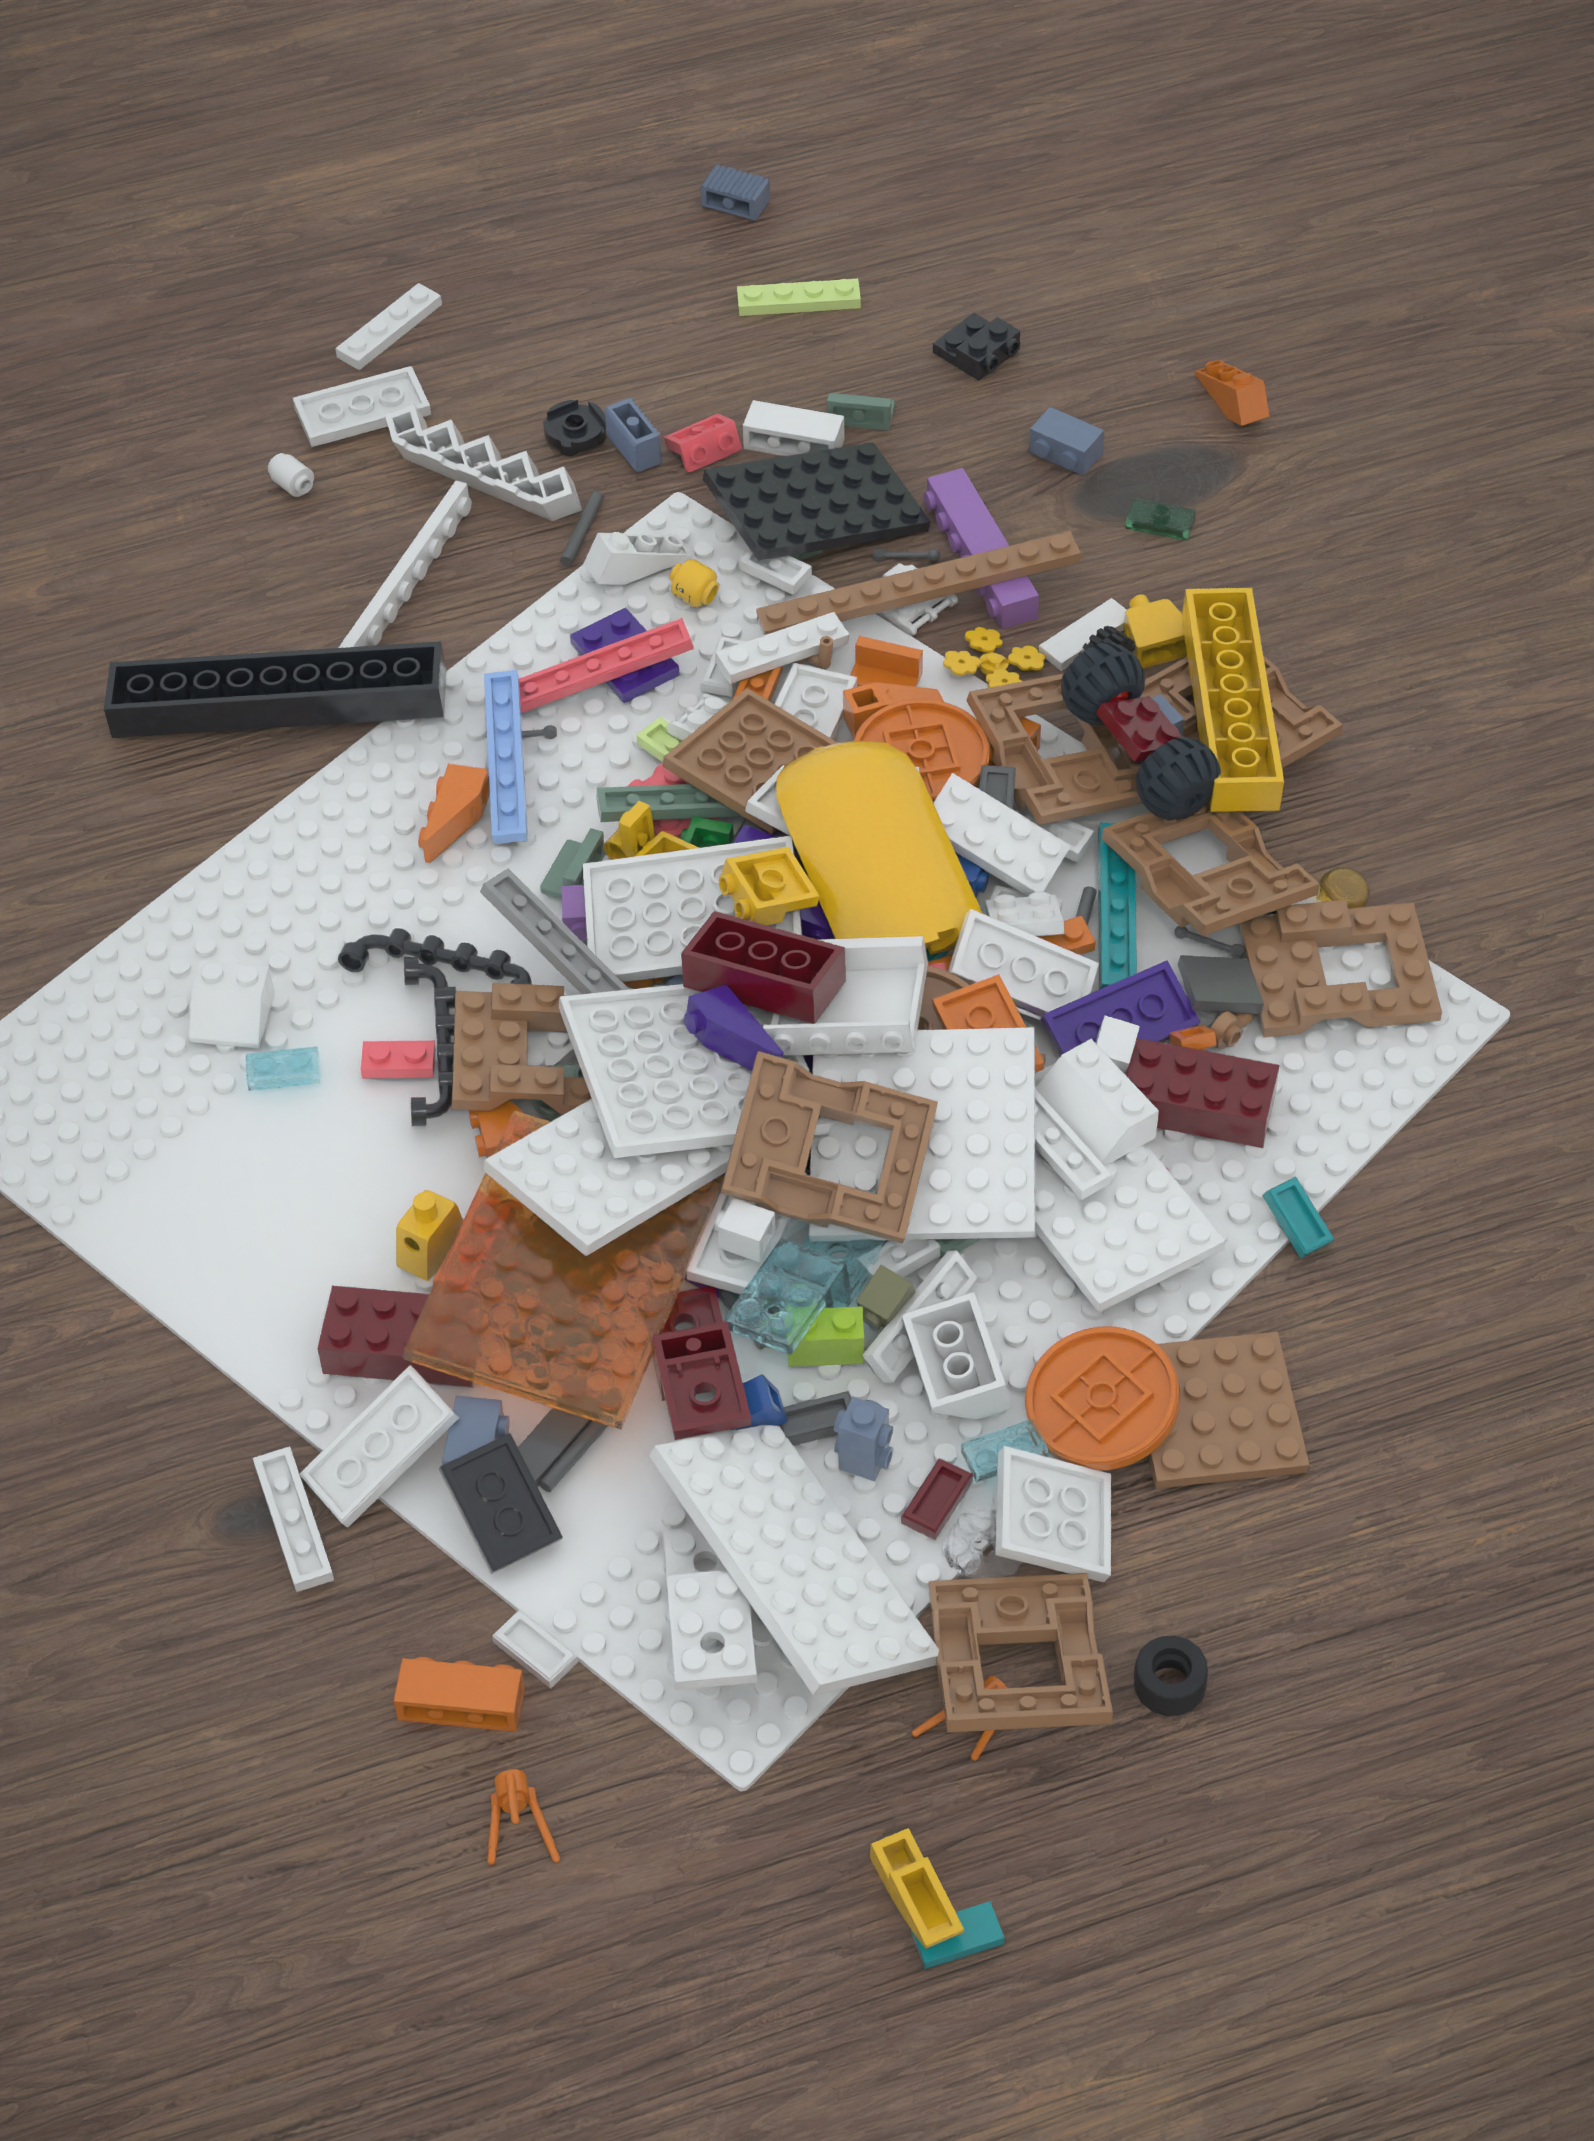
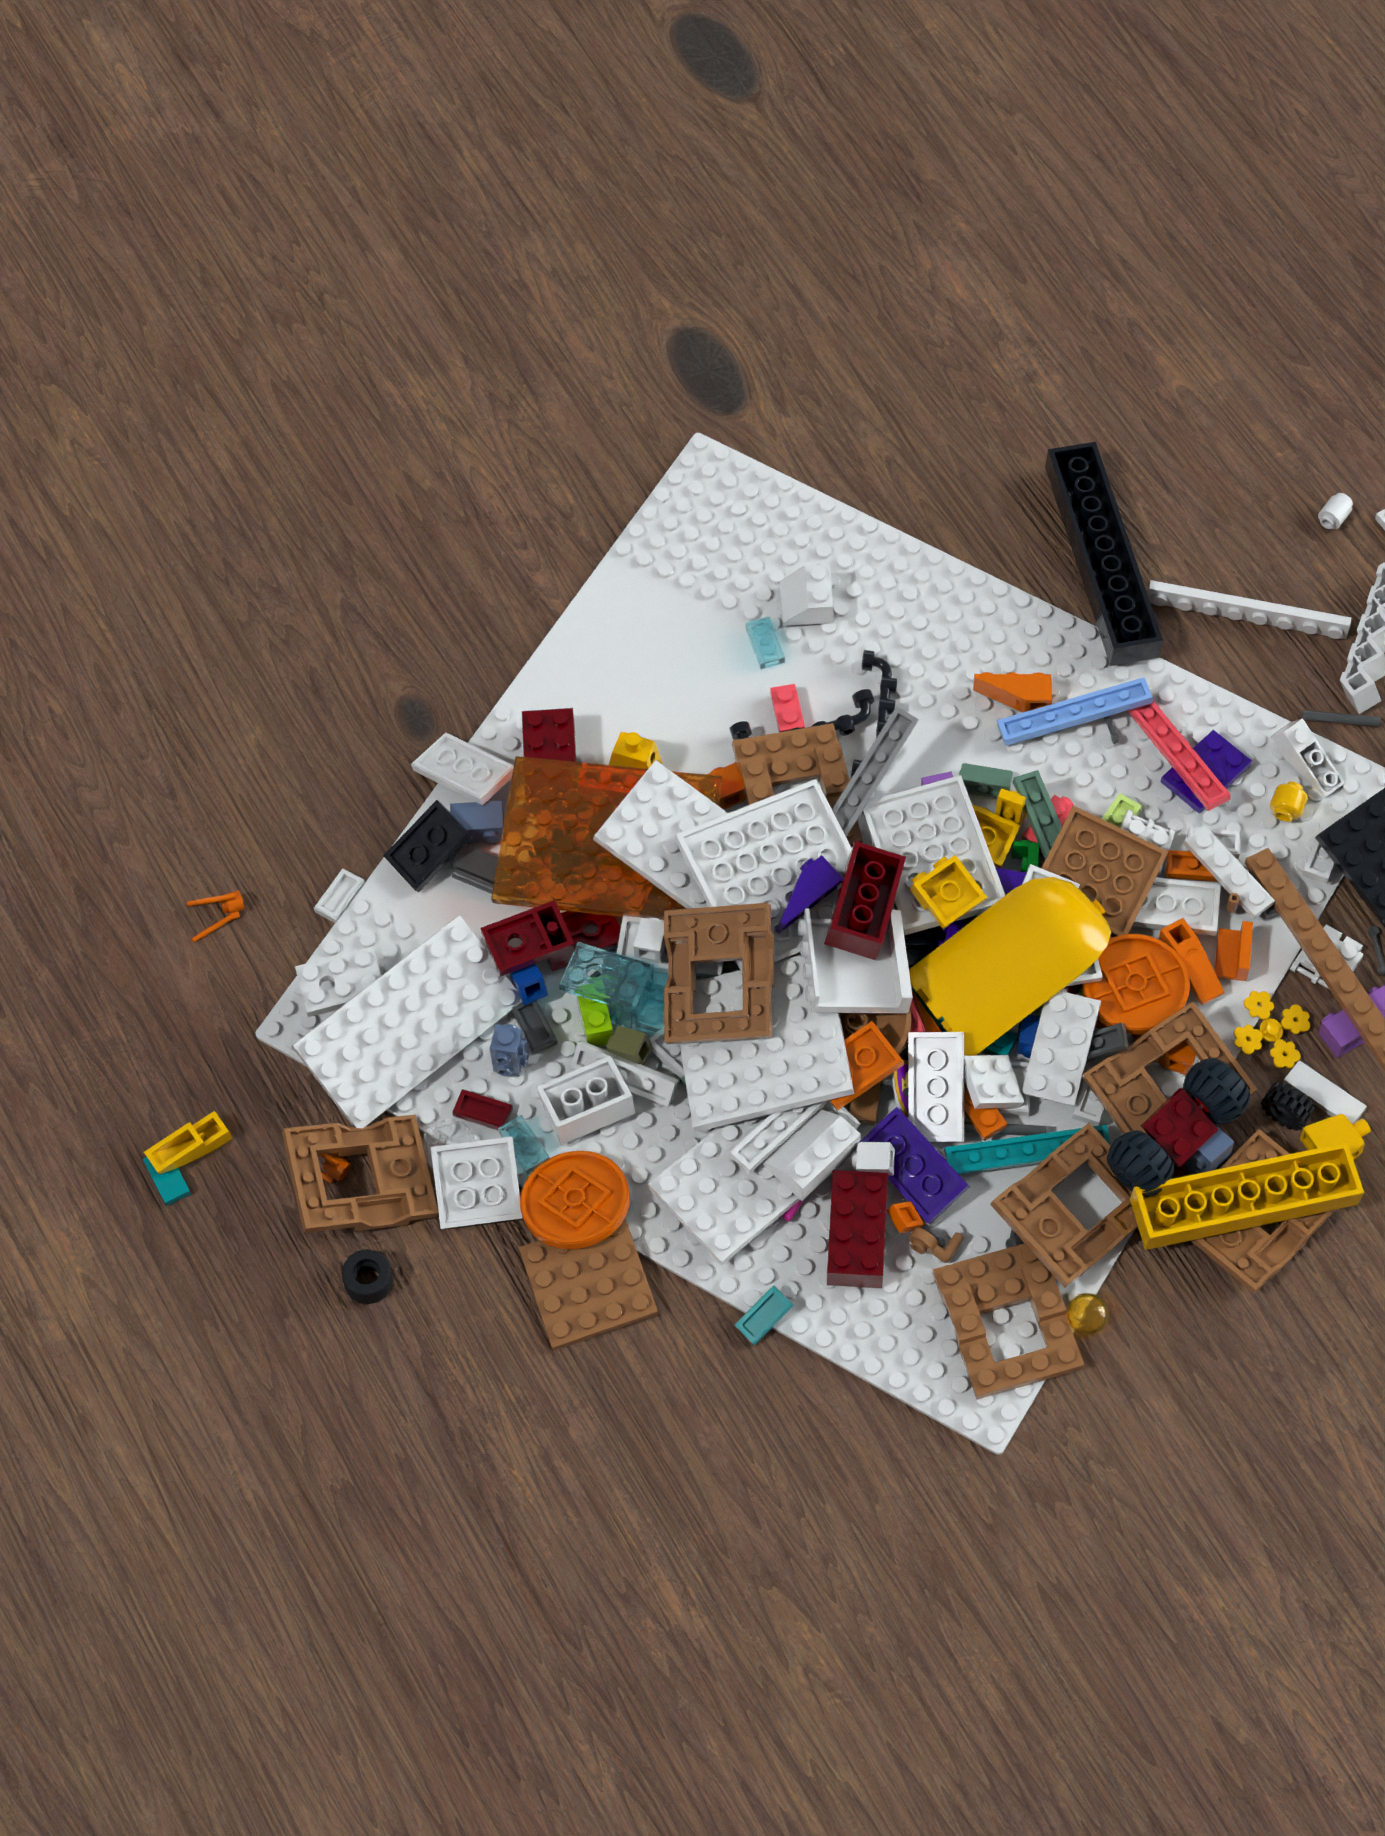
camera: 80 degrees right, 10 degrees up
(293, 1519) = (410, 736): white plate -> none
(459, 1694) = (296, 858): orange brick -> none
(1220, 984) = (964, 1231): dark grey tile -> none

